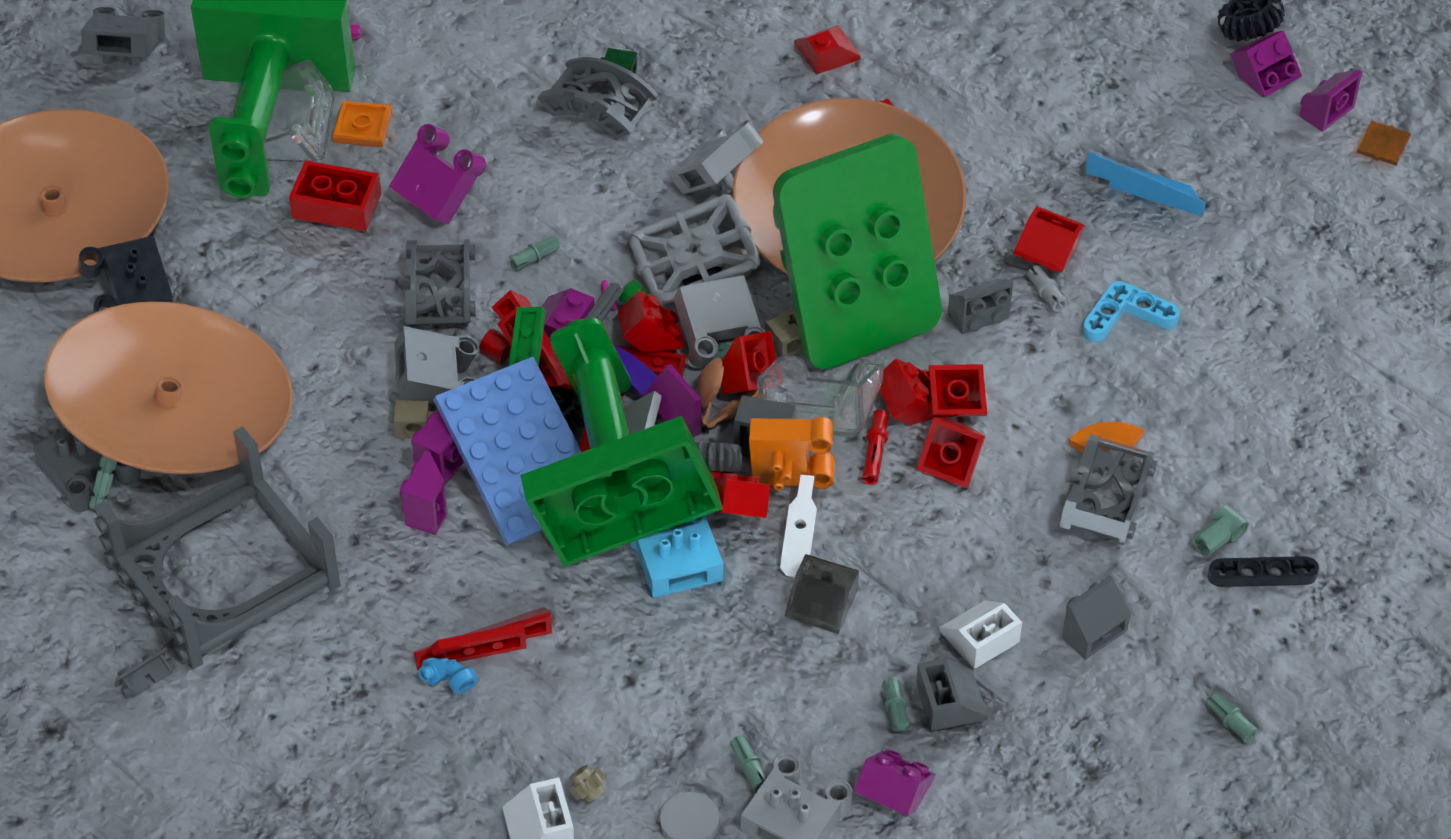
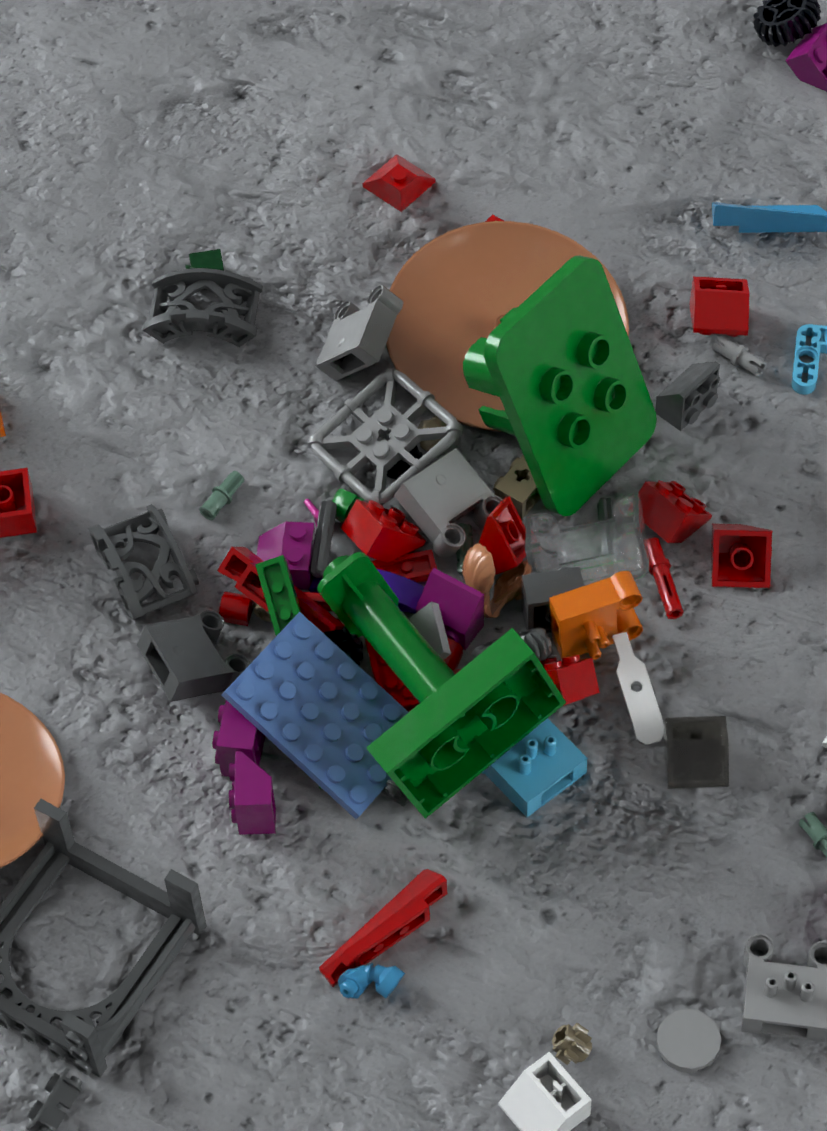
camera: 20 degrees left, 5 degrees up
(410, 417) = (192, 718): dark tan brick -> none
(431, 180) = (85, 456): magenta piece -> none
(748, 762) = (716, 957): sand green axle -> none
(957, 390) = (718, 492): red slope -> none

